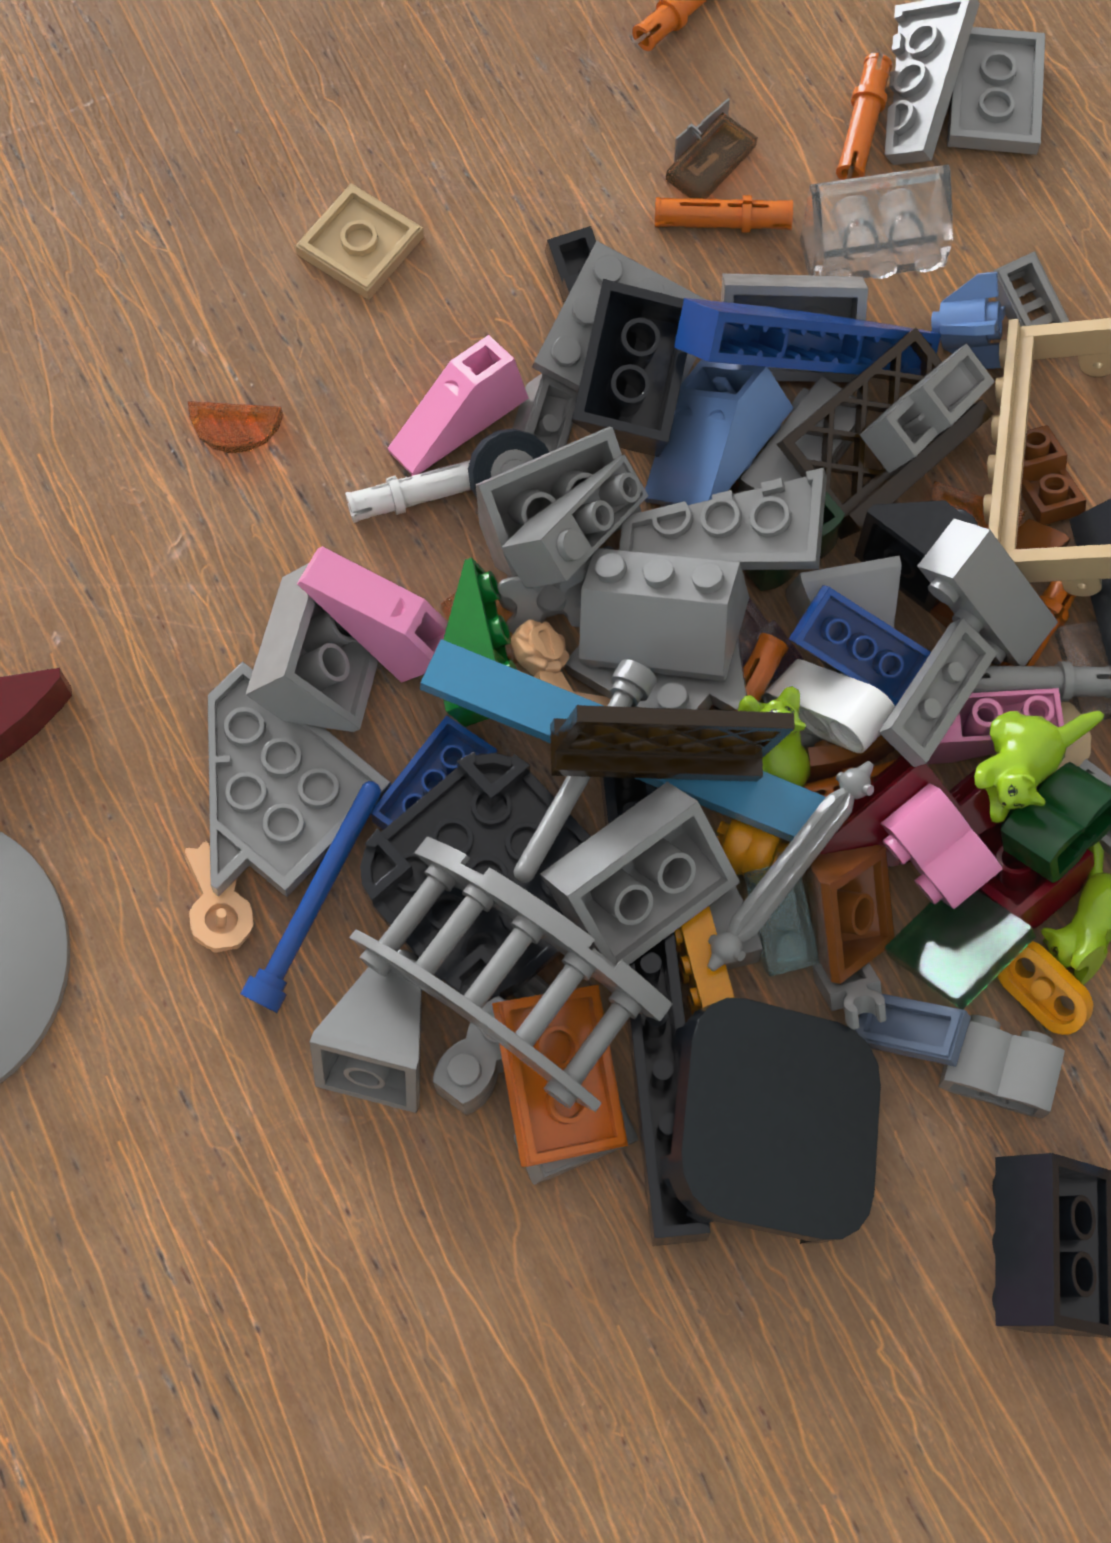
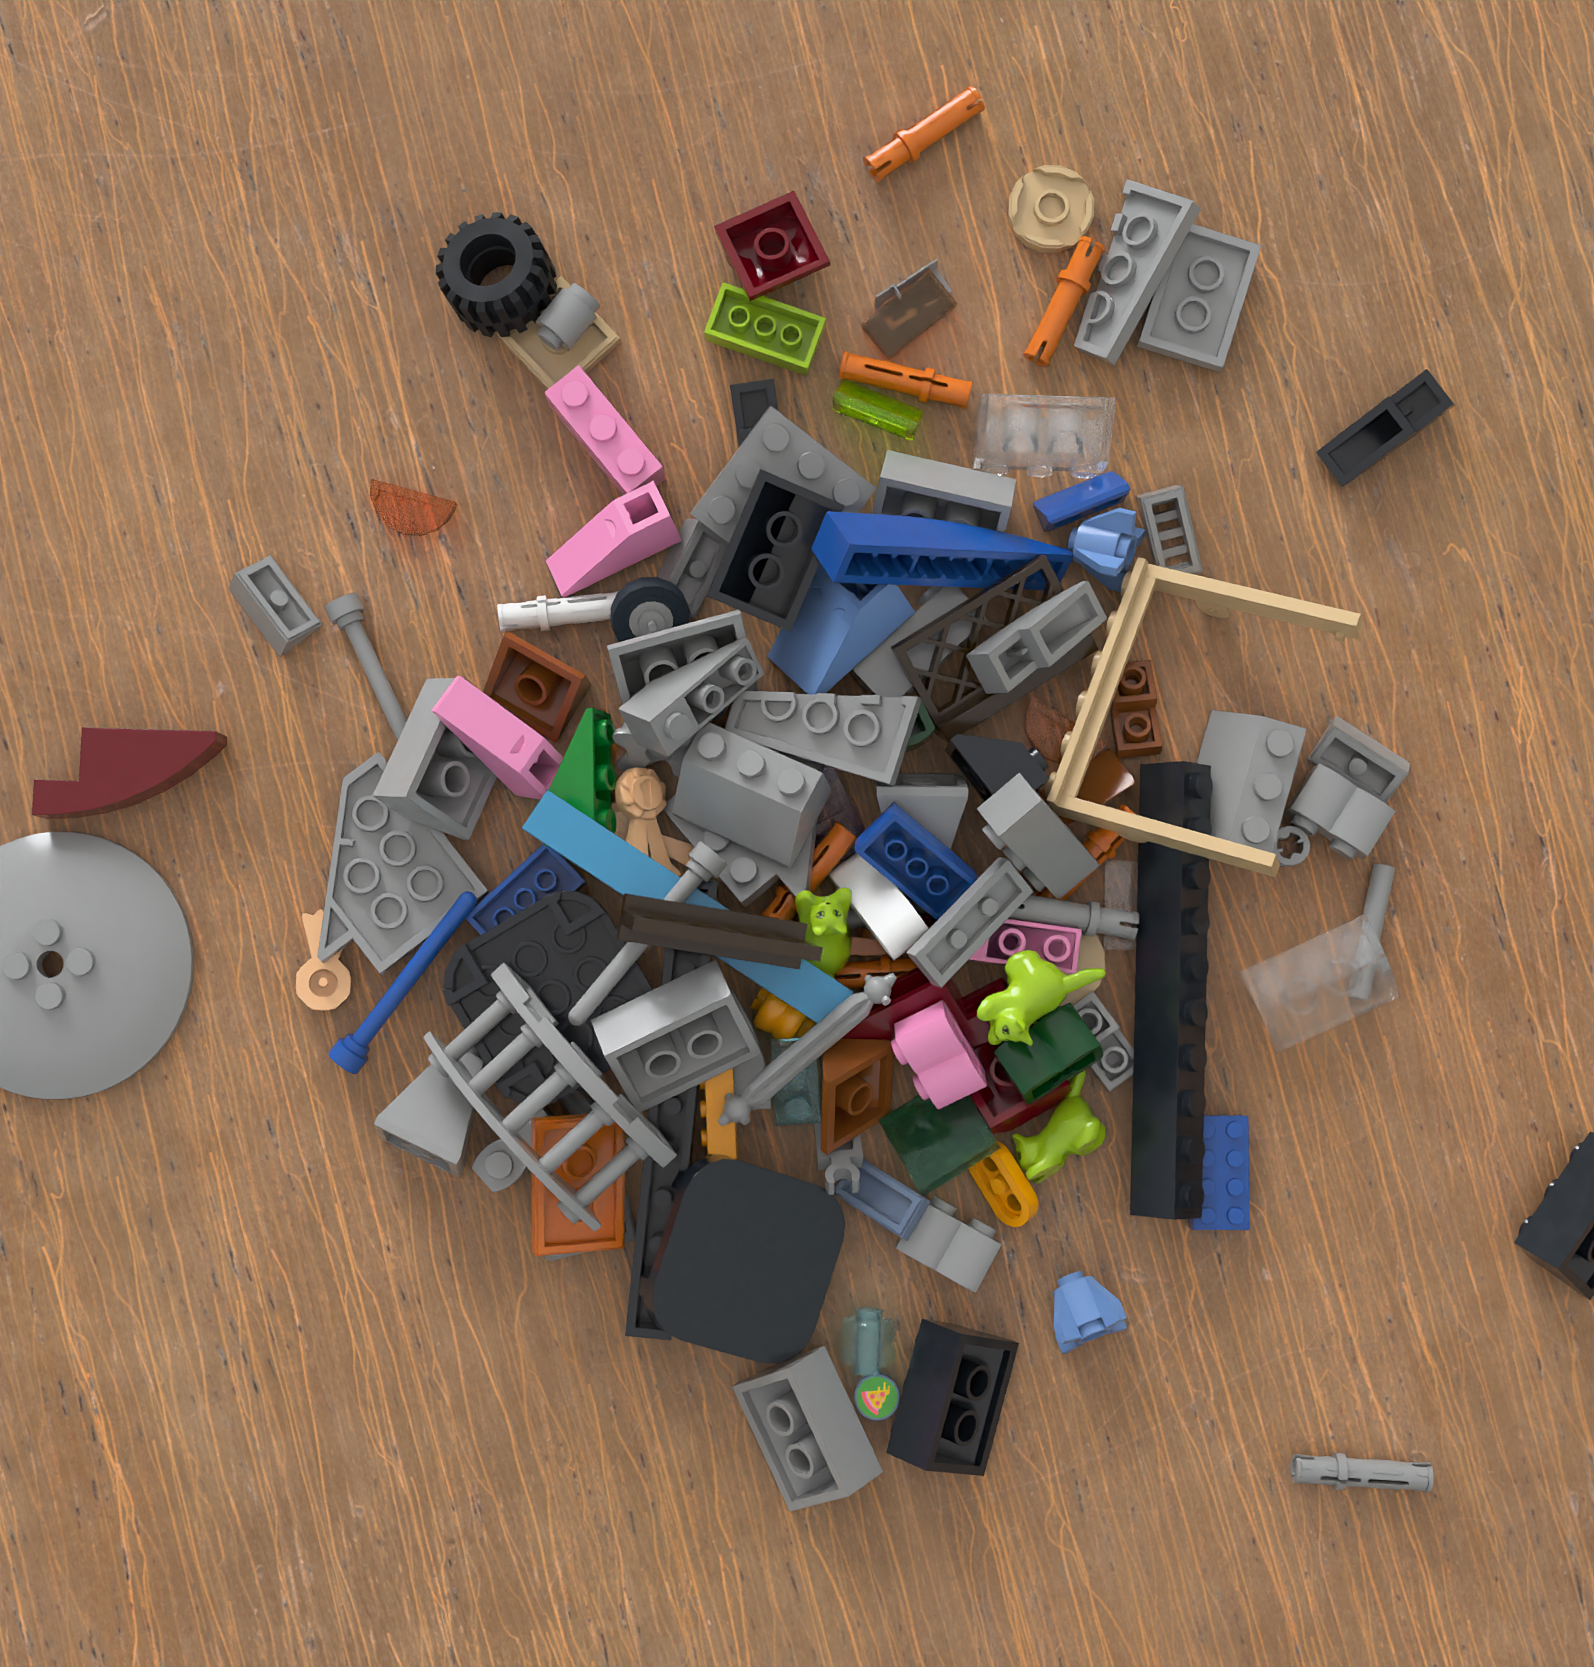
camera: 10 degrees right, 15 degrees up
(102, 544) = (274, 605): none -> light grey slope
(184, 534) = (347, 614): none -> light grey piece
(286, 184) = (481, 249): none -> black tyre
(366, 209) = (567, 317): none -> light grey brick
(407, 552) = (535, 686): none -> dark orange slope
(421, 307) = (603, 432): none -> bright pink brick
(560, 111) = (771, 246): none -> dark red slope
(569, 192) = (765, 329): none -> lime piece
(701, 248) = (877, 410): none -> clear neon green slope
(827, 45) = (1050, 209): none -> tan tile
(894, 1321) = (808, 1430): none -> light grey slope
(927, 295) = (1081, 500): none -> blue slope
(938, 1198) = (868, 1341): none -> clear light blue piece
(964, 1266) = (876, 1396): none -> tile

